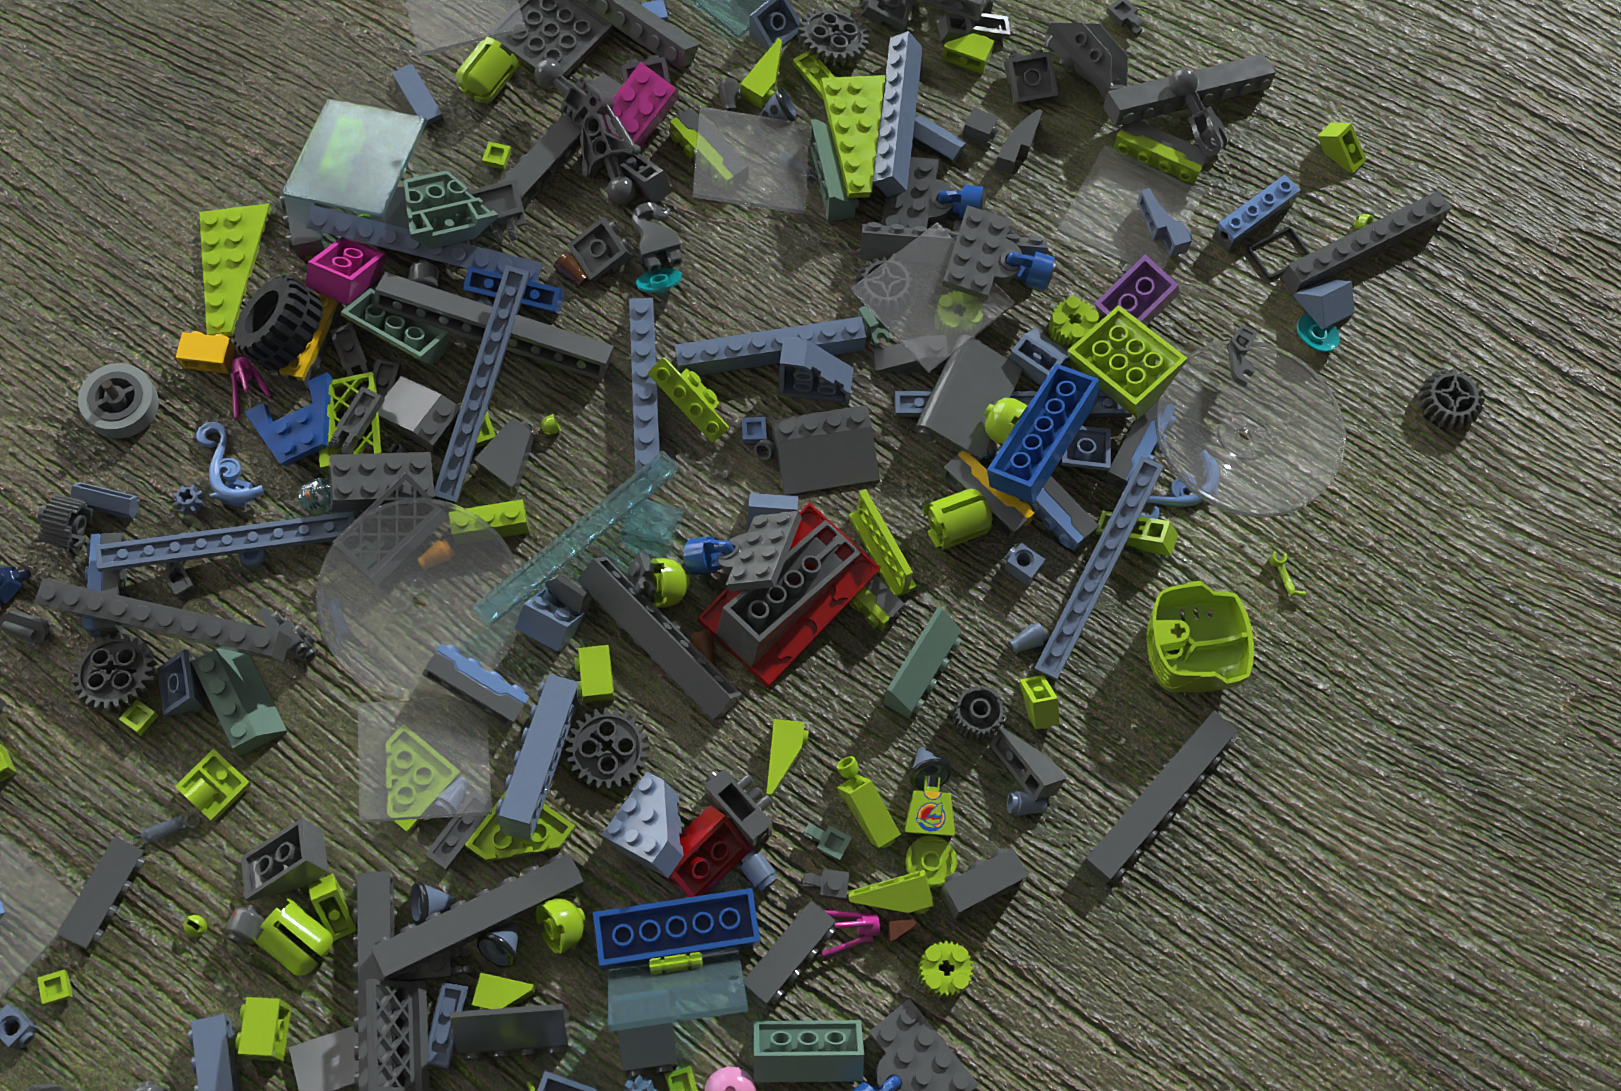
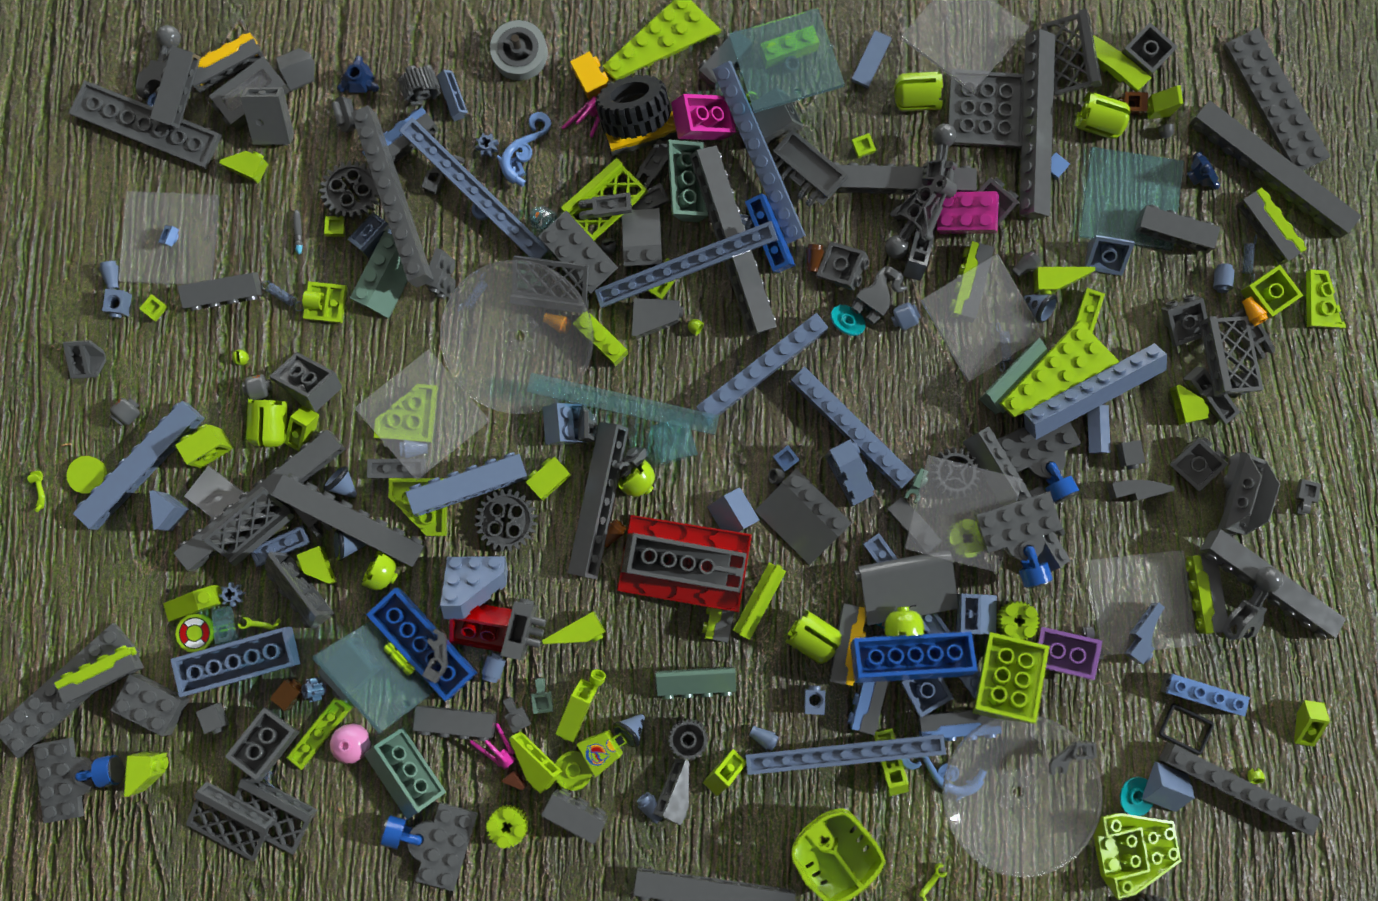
camera: 65 degrees right, 15 degrees up
(123, 772) = (297, 231): none -> dark grey piece
(299, 432) = (576, 177): blue wing -> none
(424, 273) = (739, 168): dark grey head -> none
(443, 210) = (788, 146): sand green wedge -> none
(475, 685) = (487, 411): dark grey piece -> none
(691, 397) = (776, 403): lime bracket -> none
(696, 227) = (906, 316): none -> sand blue head
(698, 903) = (440, 648): none -> dark grey piece
(750, 558) = (687, 522): dark grey plate -> none
(833, 36) = (1127, 302): dark grey gear -> none
(1370, 370) = (1134, 851): none -> lime wedge

